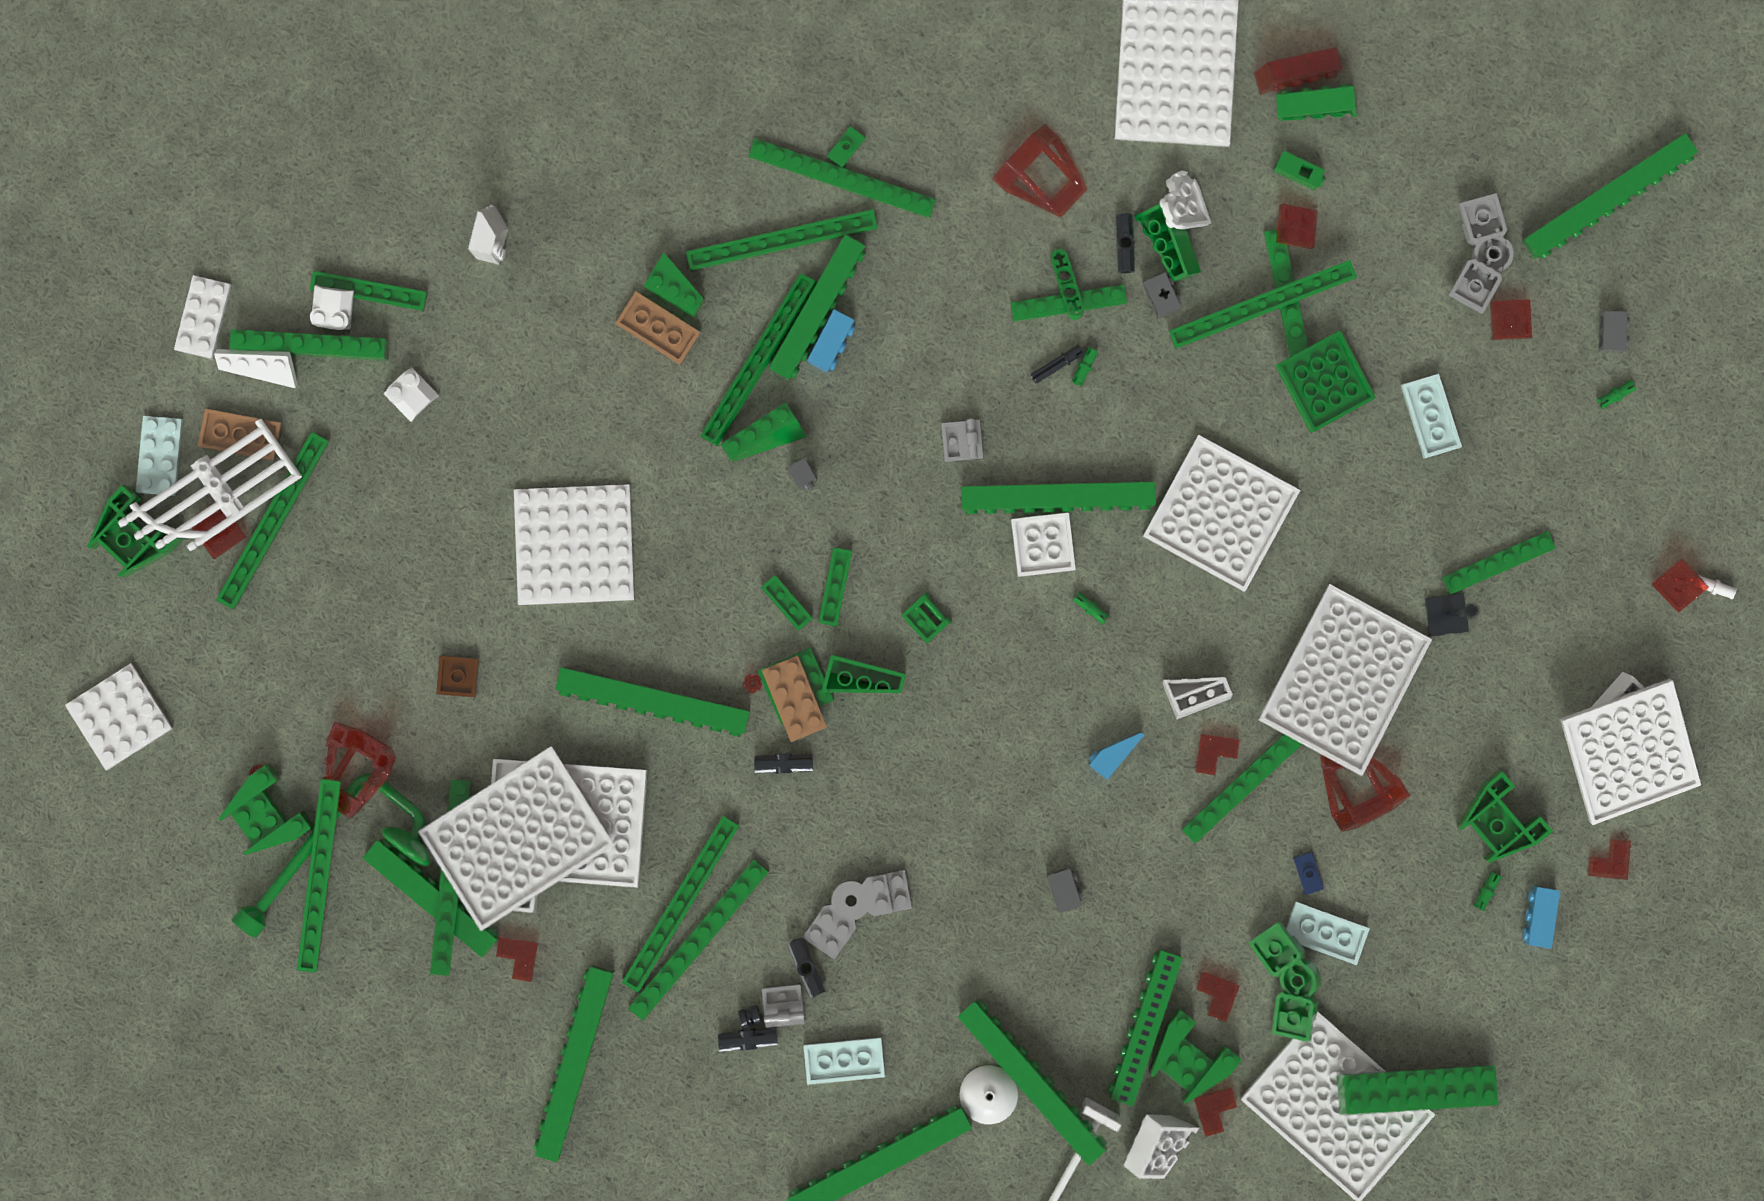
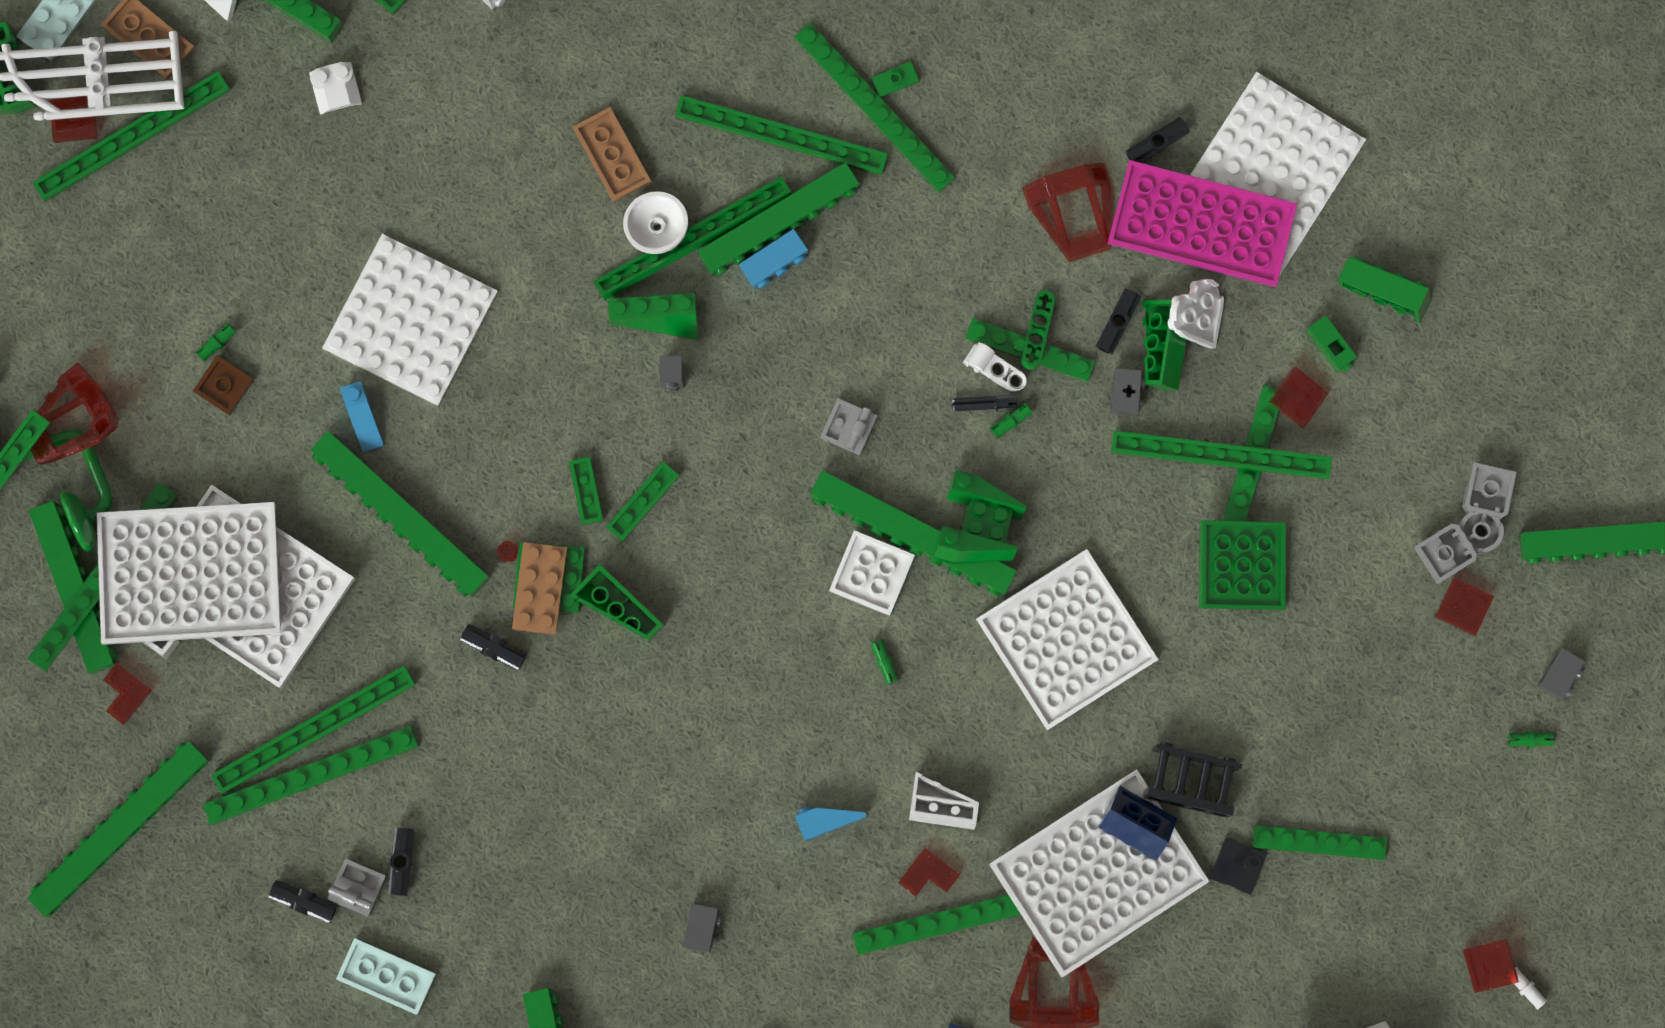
camera: 30 degrees right, 5 degrees down
(432, 646) = (215, 342): none -> green pin
(580, 641) = (362, 416): none -> dark azure slope
(673, 287) = (648, 121): green wedge -> none
(715, 354) = (654, 210): none -> white dish
(749, 1017) = (317, 880): black wheel -> none
(876, 895) = (509, 828): light grey plate -> none
(921, 622) = (708, 585): green plate -> none
(1038, 331) = (982, 360): none -> white piece
(1083, 74) = (1168, 134): none -> black piece
(1109, 458) = (984, 523): none -> green wedge
(1149, 130) = (1202, 223): none -> dark pink plate
(1298, 70) = (1384, 245): clear red wedge -> none
(1355, 625) = (1138, 823): none -> dark blue slope
(1374, 587) = (1178, 796): none -> black fence
(1431, 416) = (1331, 658): light aqua plate -> none

